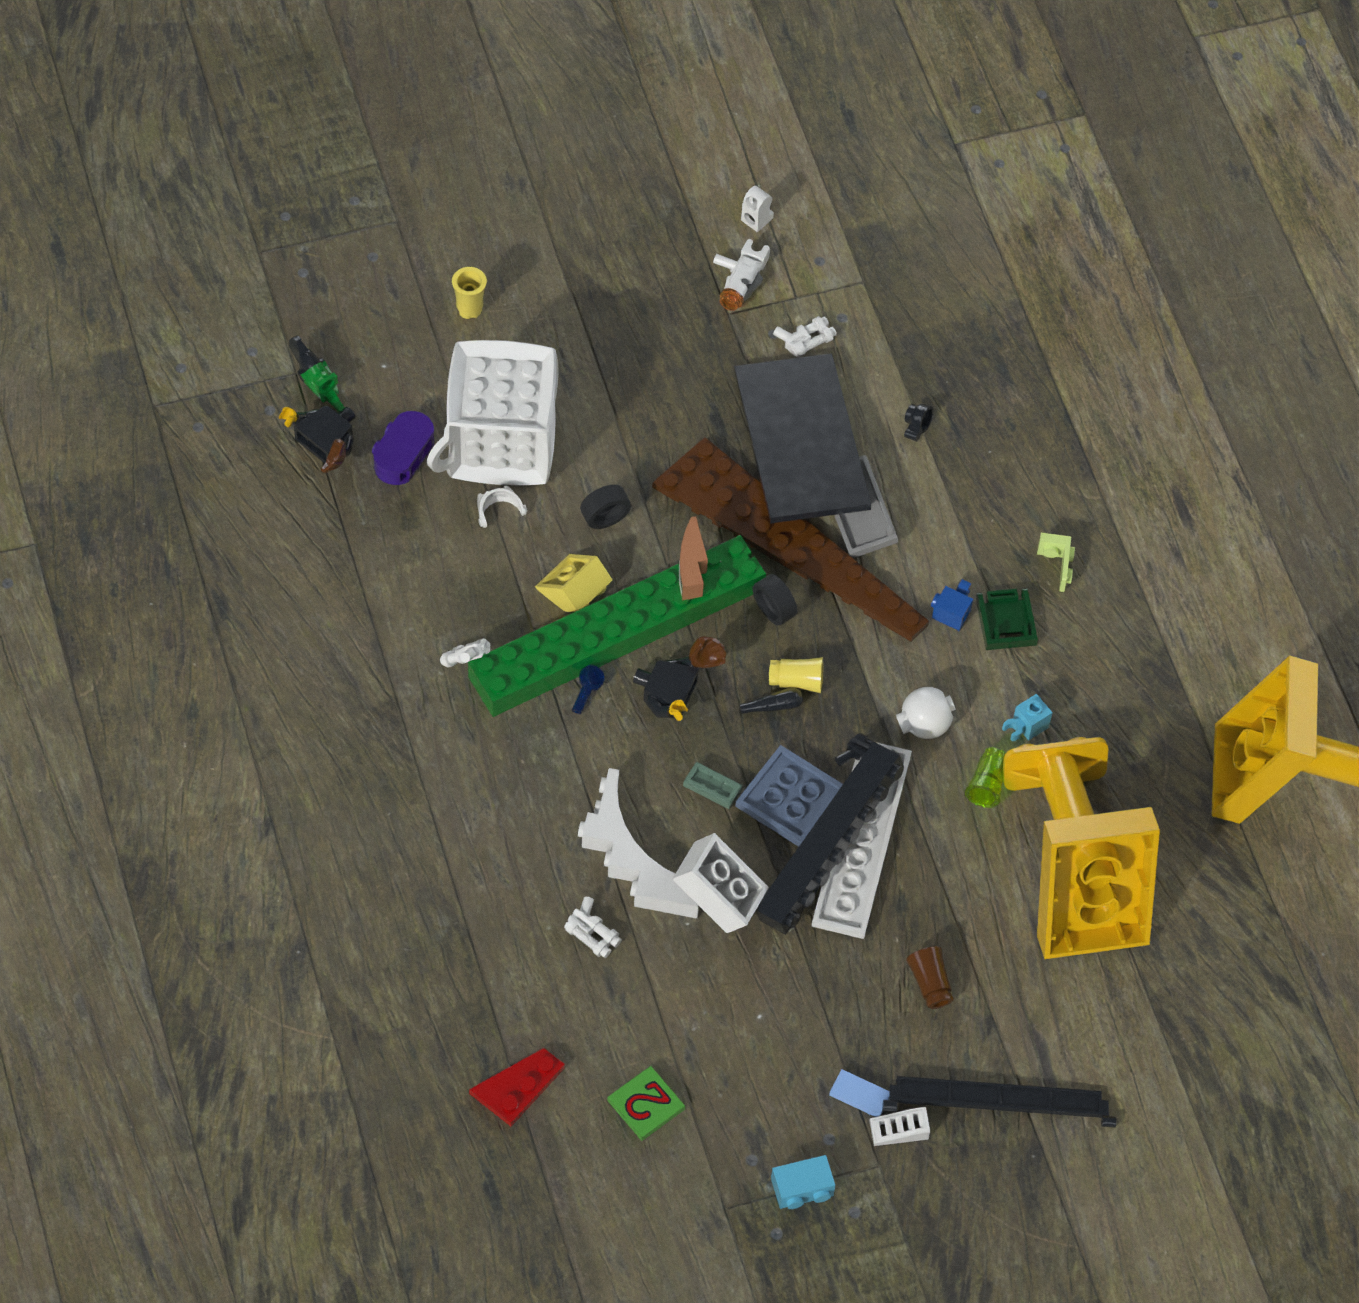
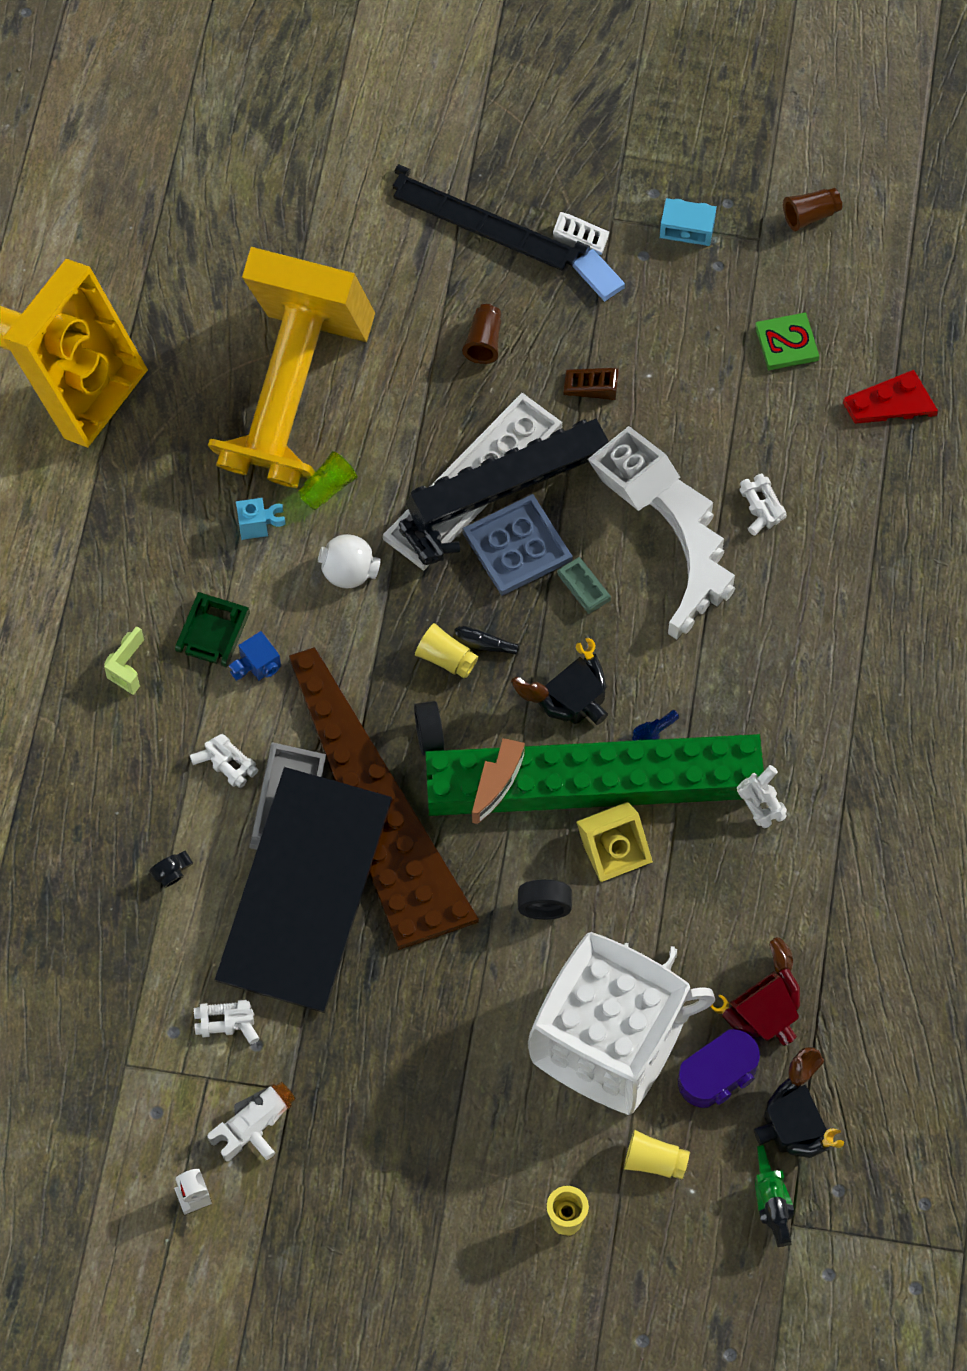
camera: 150 degrees left, 5 degrees up
(383, 502) = (770, 1004): none -> dark red torso
(422, 366) = (655, 1156): none -> light yellow plant
(689, 1250) = (811, 207): none -> reddish brown plant
(792, 992) = (598, 374): none -> reddish brown slope
(935, 525) = (221, 752): none -> white piece

